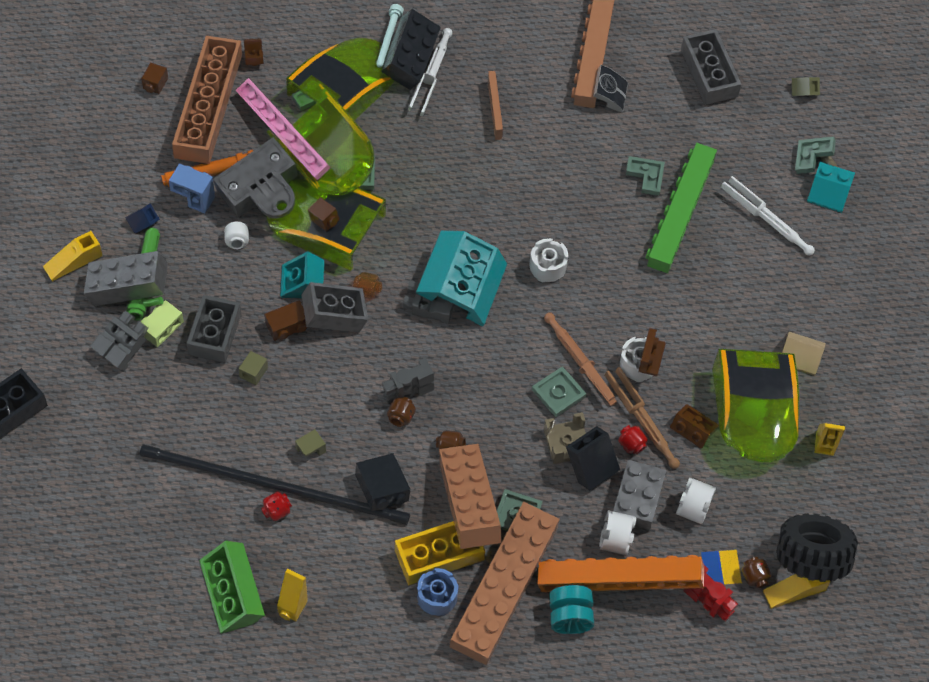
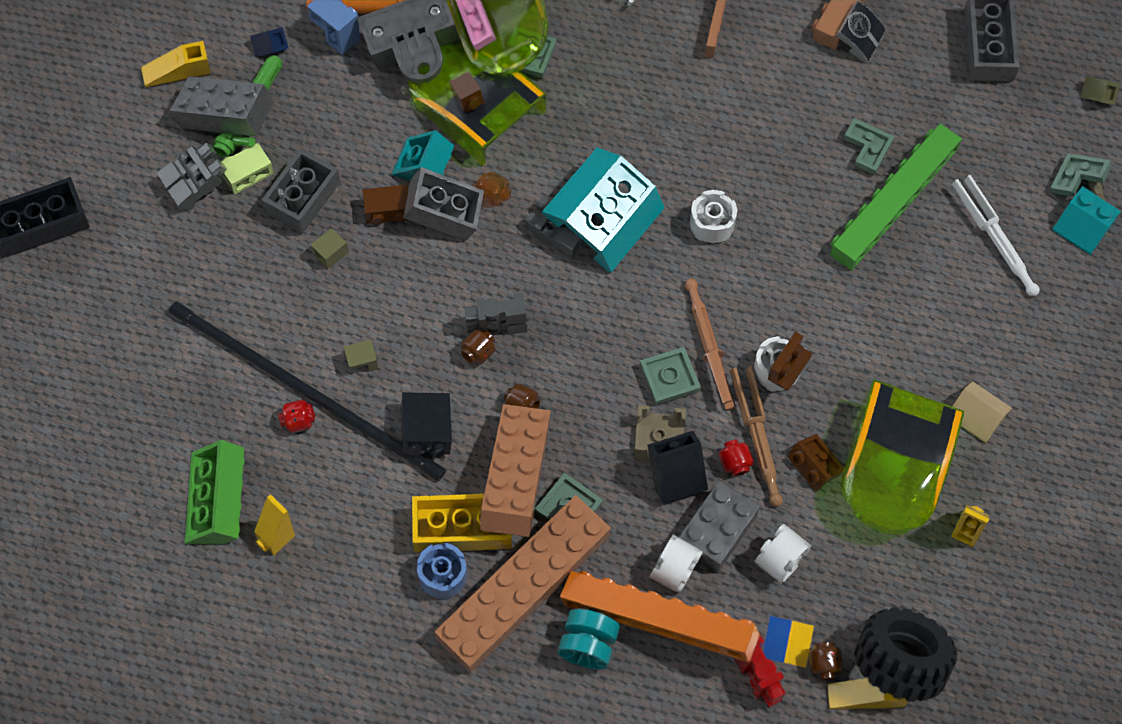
camera: 20 degrees right, 5 degrees up
(236, 235) = (366, 89): white head -> none

